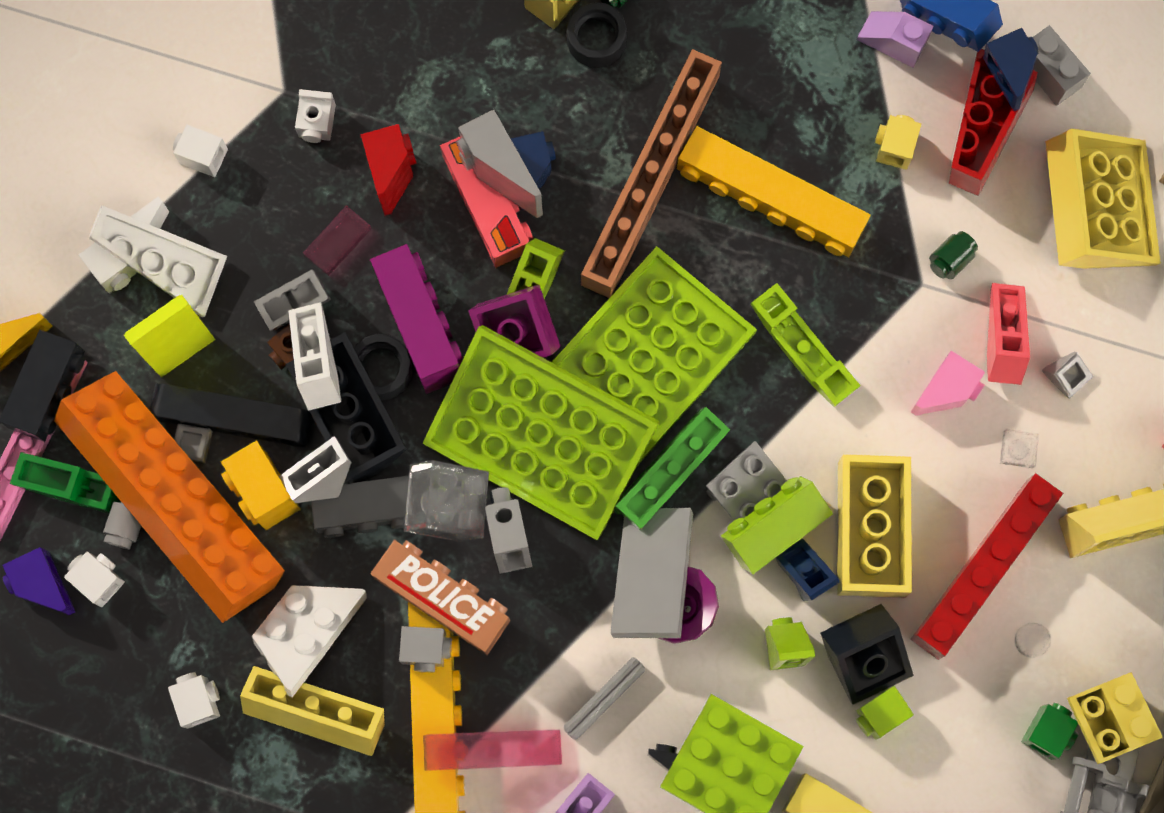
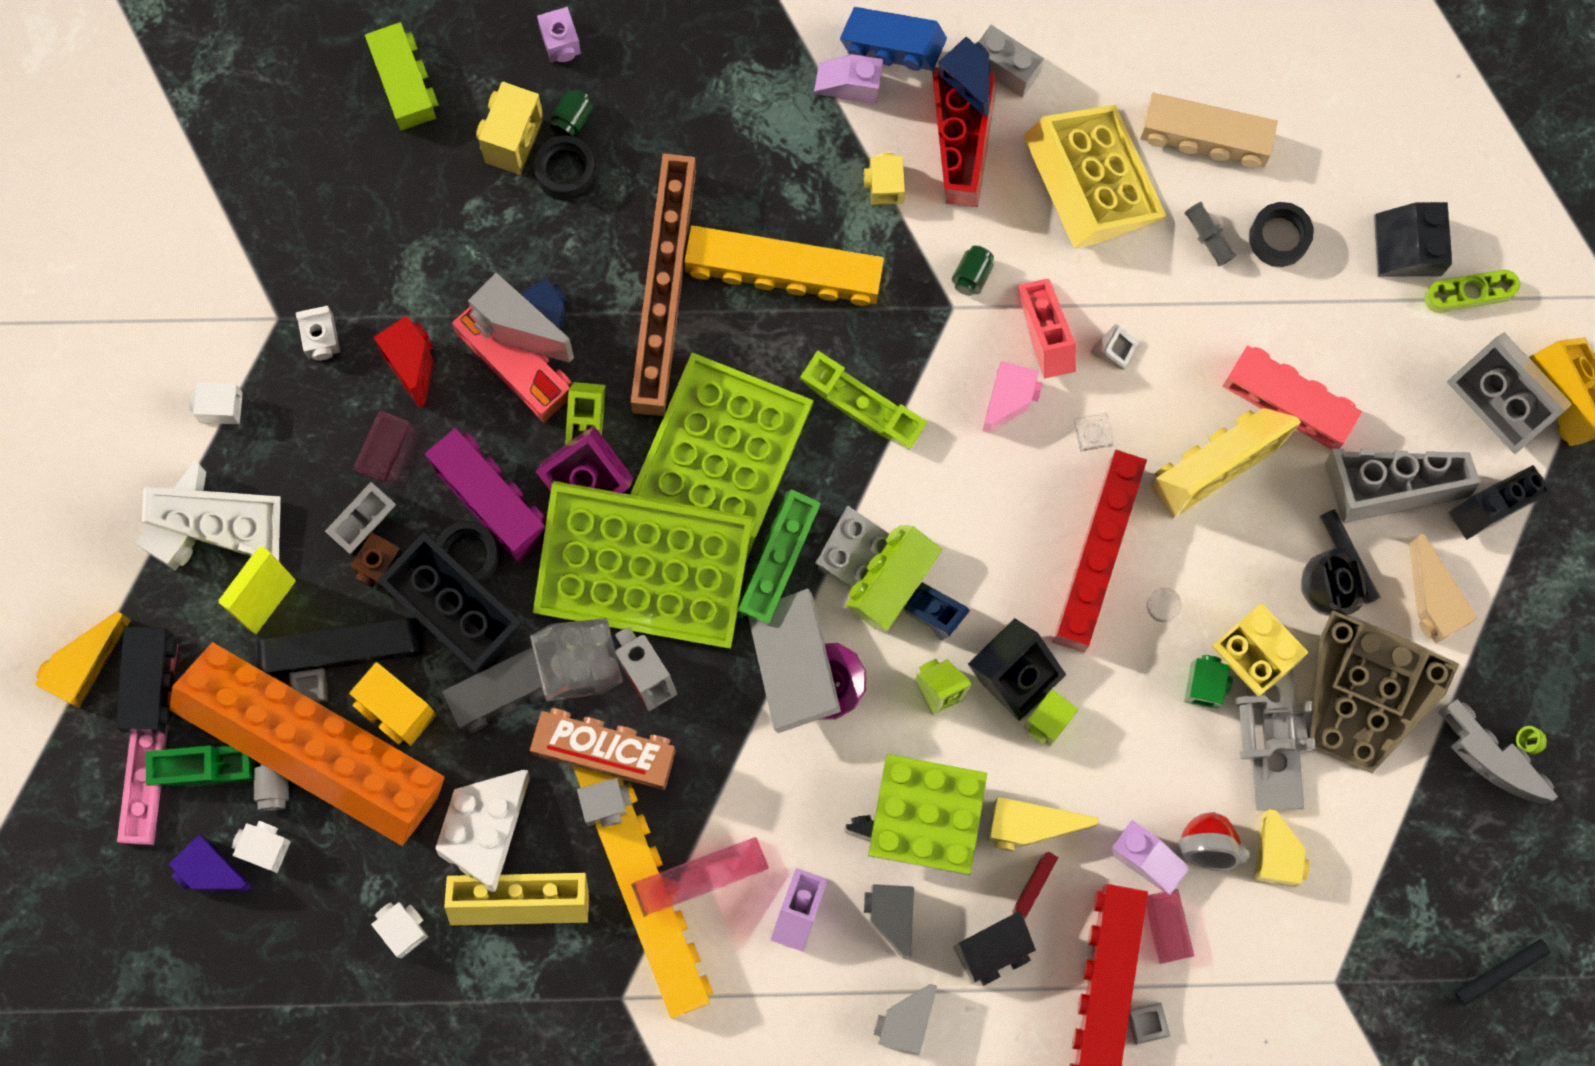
camera: 25 degrees left, 0 degrees up
(313, 357) = (403, 564): white slope -> none
(318, 474) = (447, 673): light grey slope -> none
(604, 698) = (787, 793): light grey axle -> none
(874, 526) = (984, 548): light yellow brick -> none

